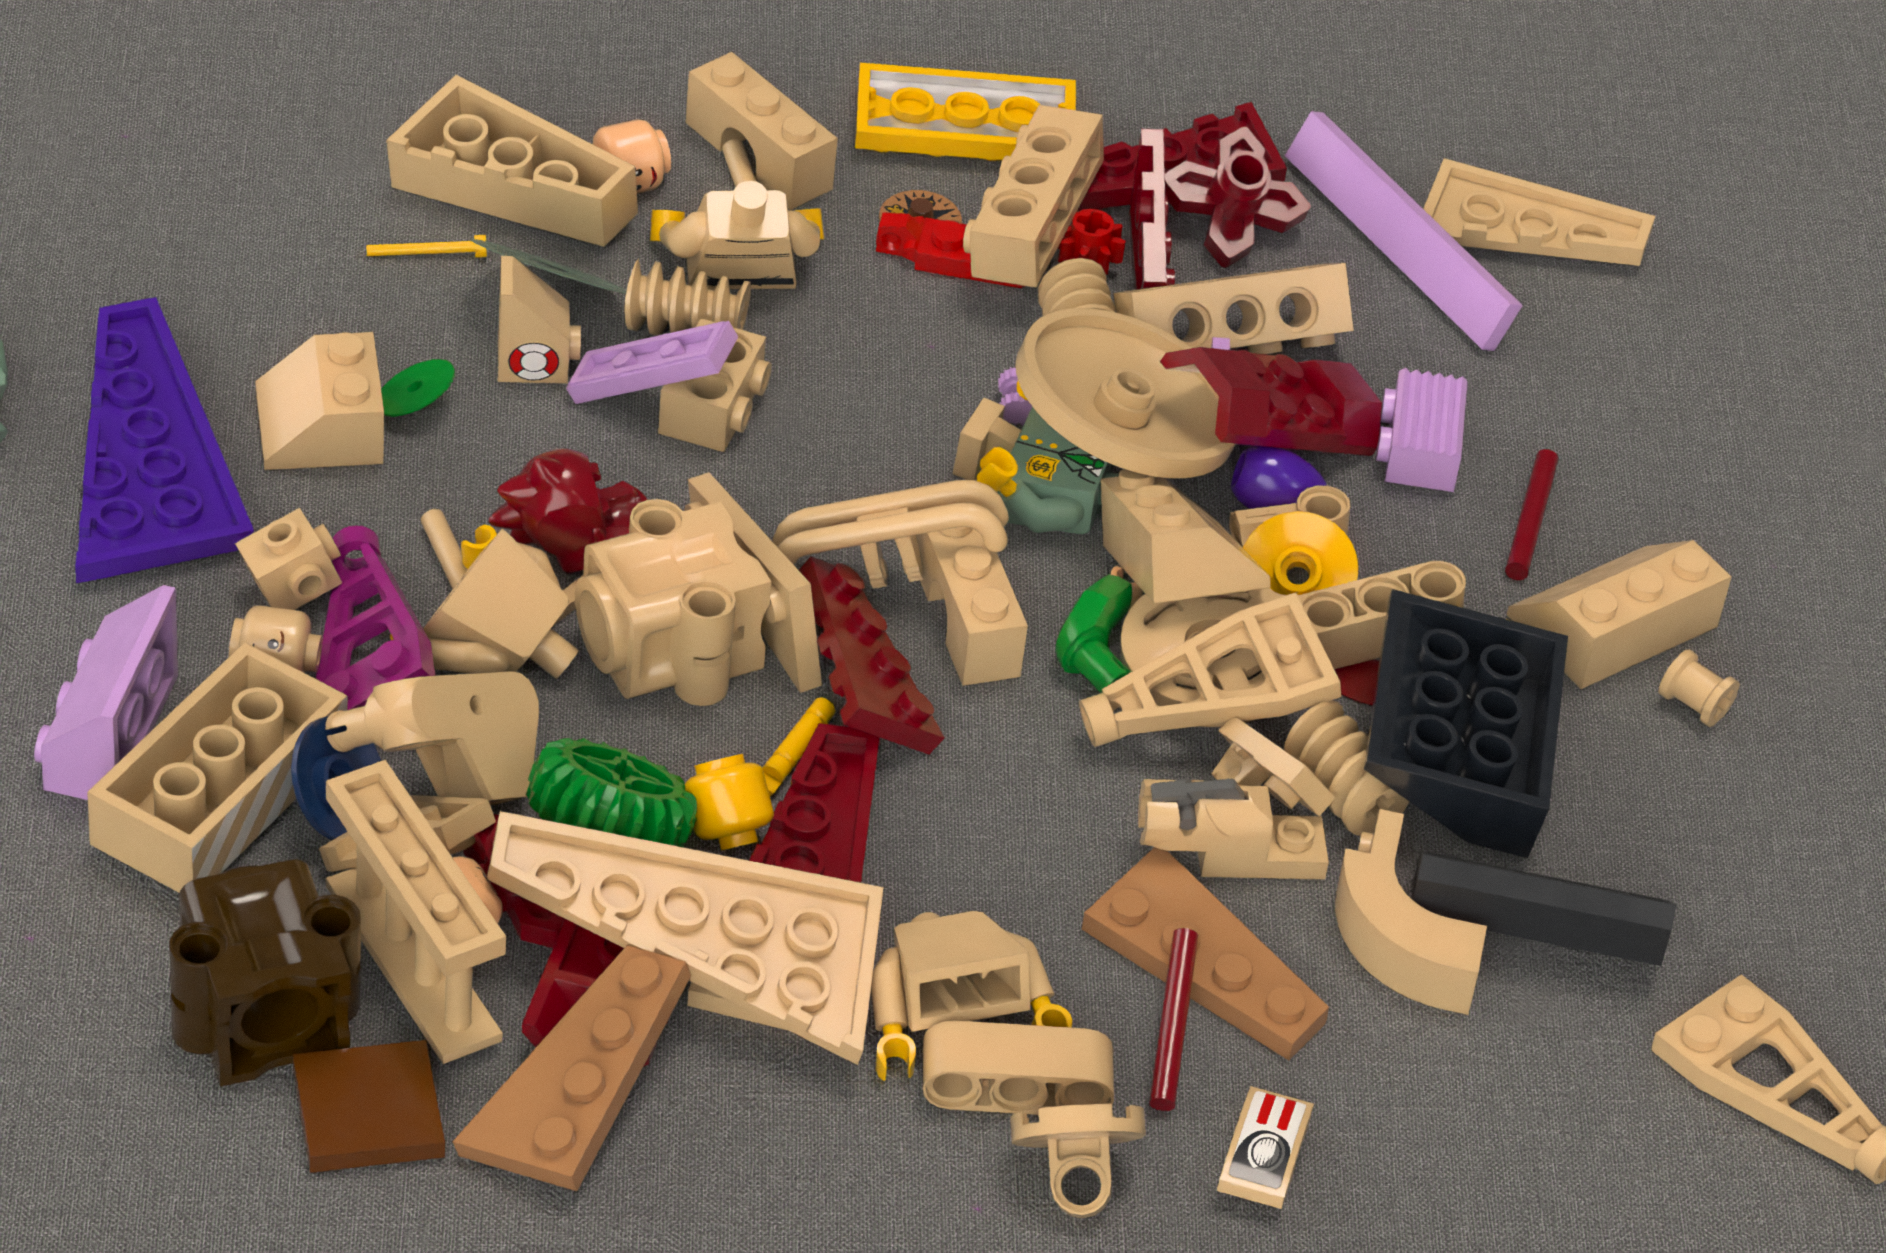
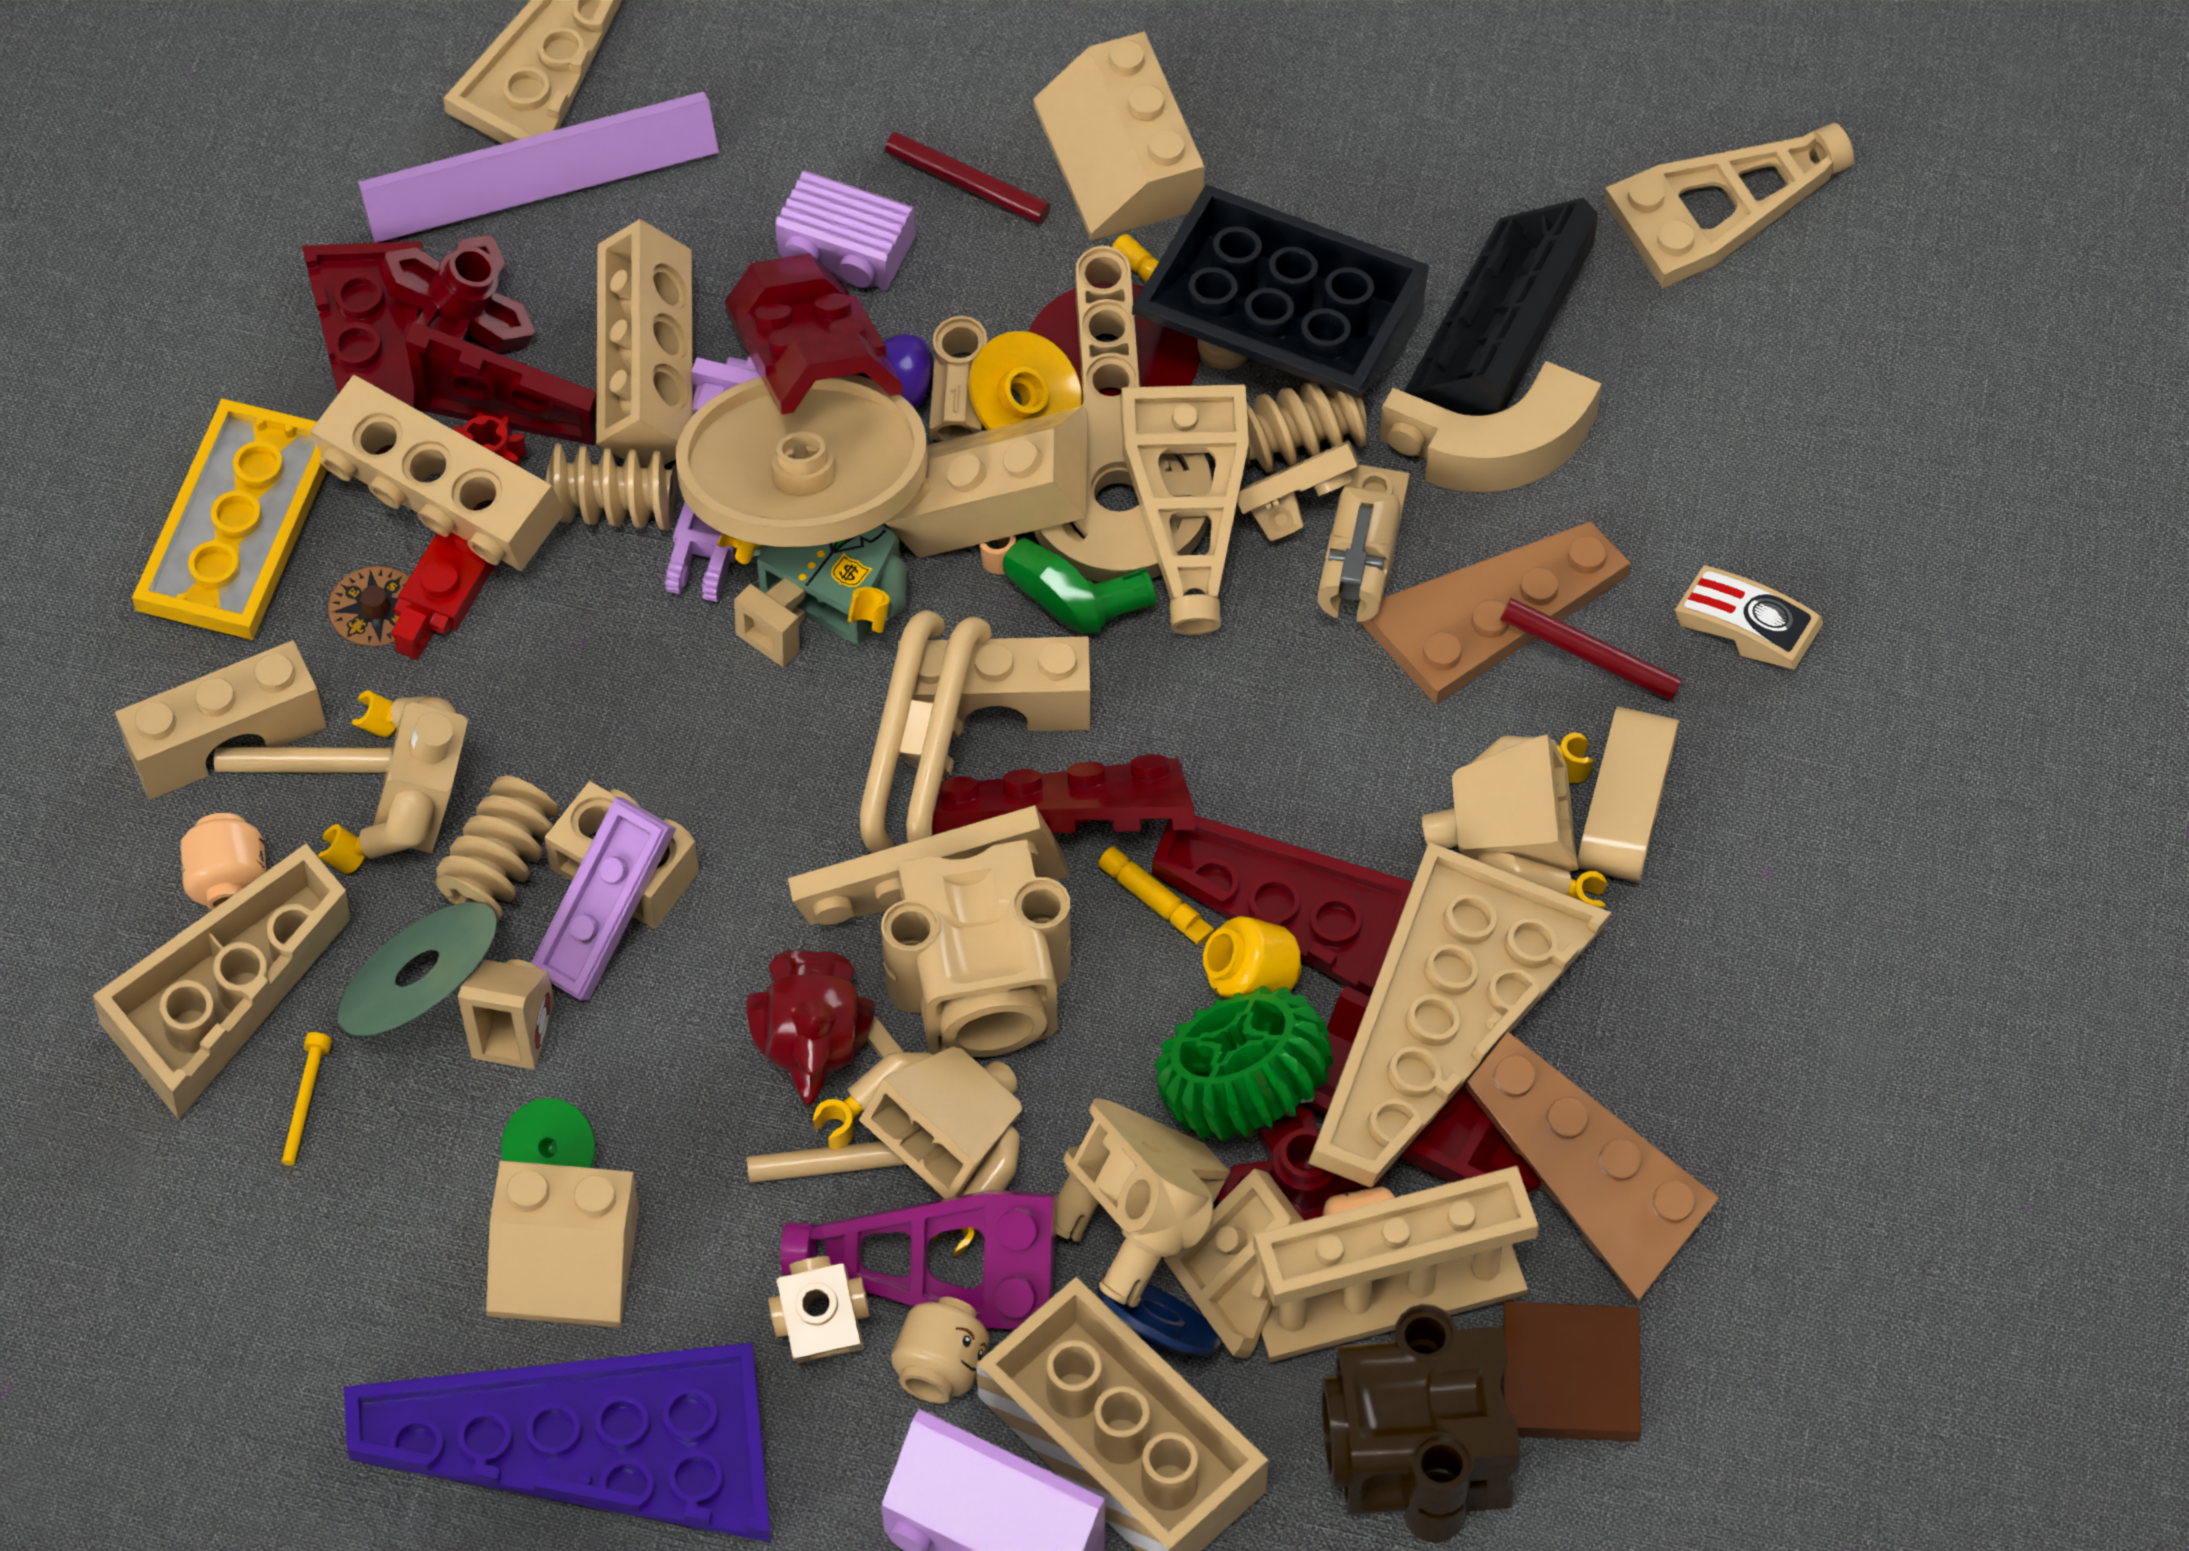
camera: 70 degrees left, 15 degrees up
(1077, 1139) = (1738, 757): tan tile -> none
(1699, 688) = (1244, 110): tan bush -> none

